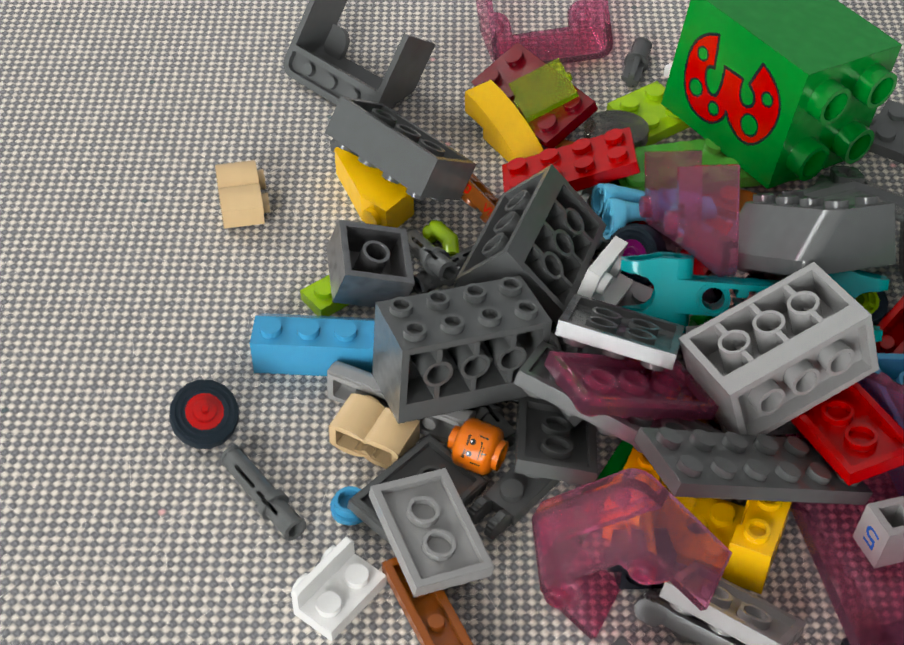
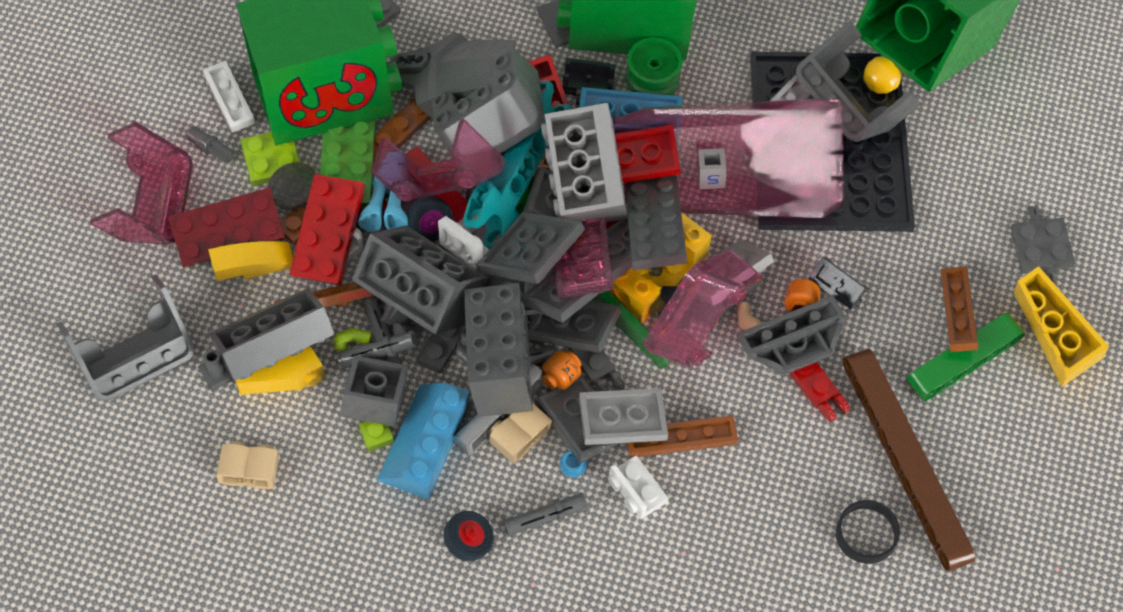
camera: 75 degrees left, 15 degrees up
(543, 90) = (238, 217): clear neon green piece -> none

